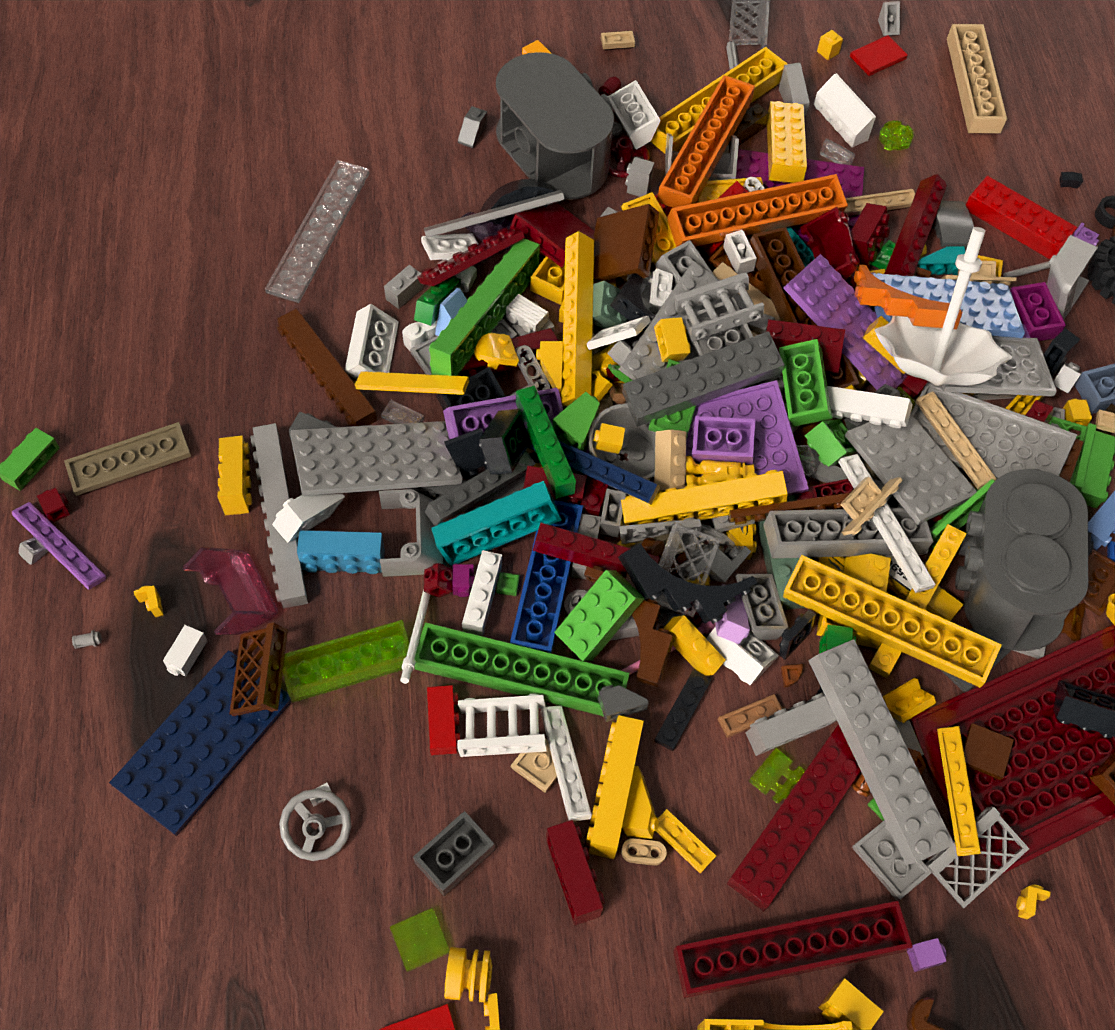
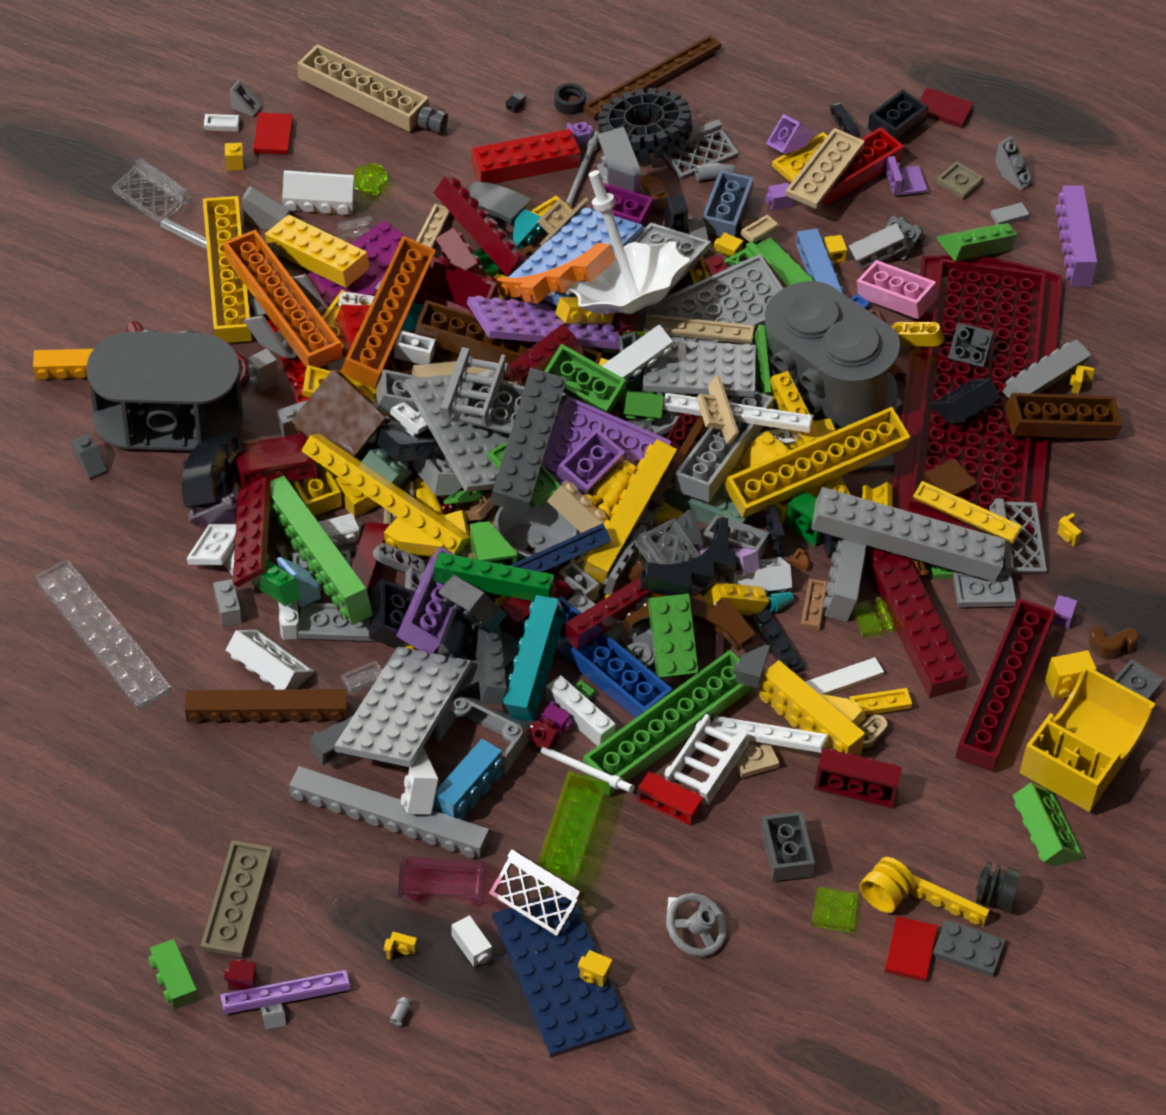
camera: 55 degrees left, 10 degrees down
(209, 766) = (595, 968): none -> yellow brick
(233, 475) = (324, 825): yellow wedge -> none
(412, 383) = (348, 643): yellow tile -> none
(494, 213) = (221, 489): light grey tile -> none
(496, 350) = (369, 566): yellow slope -> none
(609, 438) = (527, 534): yellow brick -> none
(617, 40) = (83, 296): tan plate -> none
(618, 332) = (427, 472): white tile -> none
(635, 113) = (178, 320): white slope -> none
(672, 339) = (473, 438): yellow brick -> none
(688, 792) = (847, 677): none -> white tile
(725, 681) = (778, 601): none -> teal cone
(857, 22) = (217, 122): none -> white tile
(992, 138) = (430, 119): none -> dark grey wheel
(1081, 321) = (654, 188): none -> reddish brown slope

